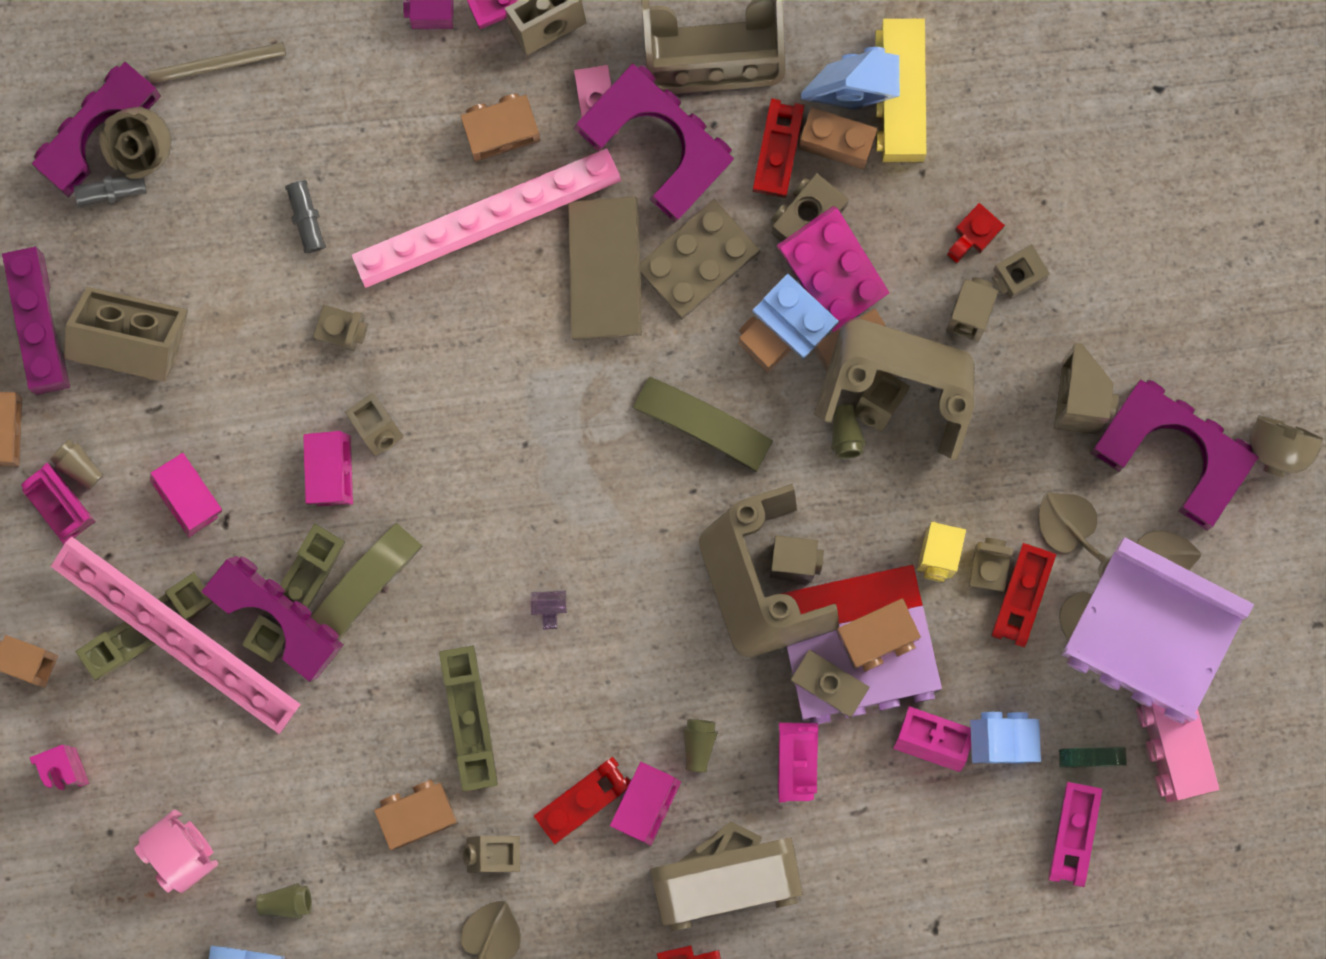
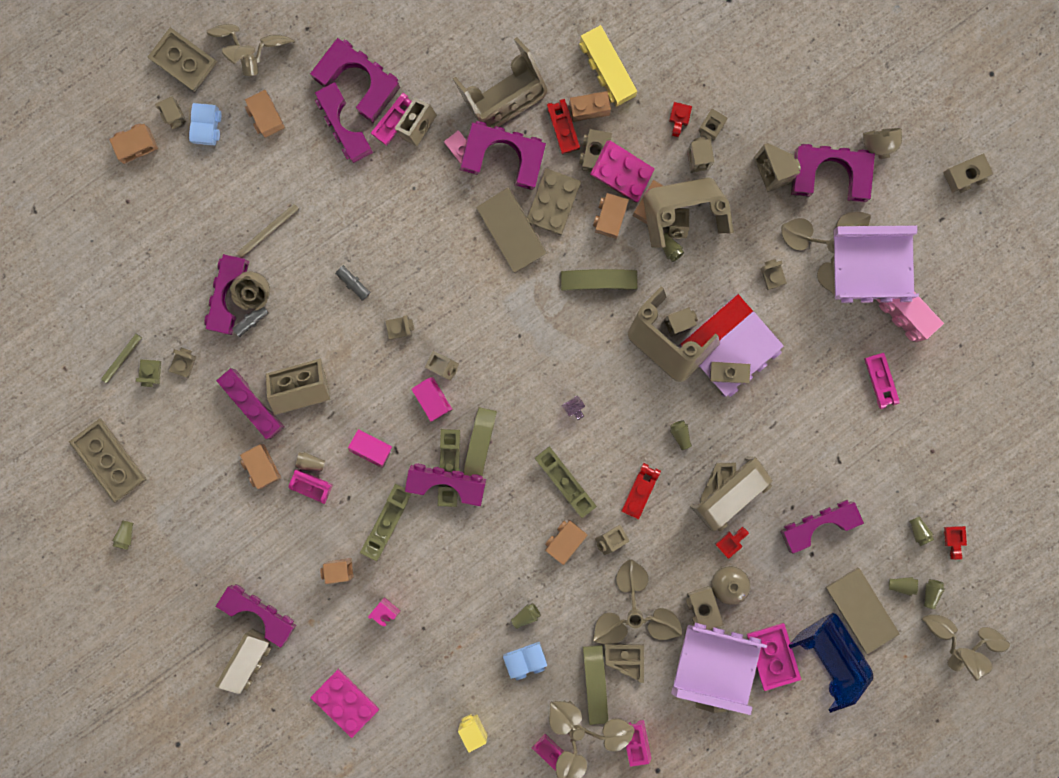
camera: 30 degrees left, 5 degrees up
(175, 635) = (403, 518): bright pink plate -> none
(176, 853) = (462, 622): bright pink brick -> none
(486, 217) = (441, 236): bright pink plate -> none
(500, 126) = (423, 188): medium nougat brick -> none
(645, 803) = (671, 476): dark pink hinge -> none
(795, 316) = (617, 204): light blue plate -> none
(797, 761) = (733, 418): dark pink hinge -> none
(856, 80) = (584, 72): light blue slope -> none
(879, 634) = (741, 337): medium nougat brick -> none
(934, 739) = (792, 371): dark pink hinge -> none
(941, 551) = (748, 280): light yellow brick -> none
(1005, 739) = (826, 354): light blue brick -> none
(1024, 593) = (796, 279): red plate -> none
(1092, 757) = (871, 339): clear green beam -> none

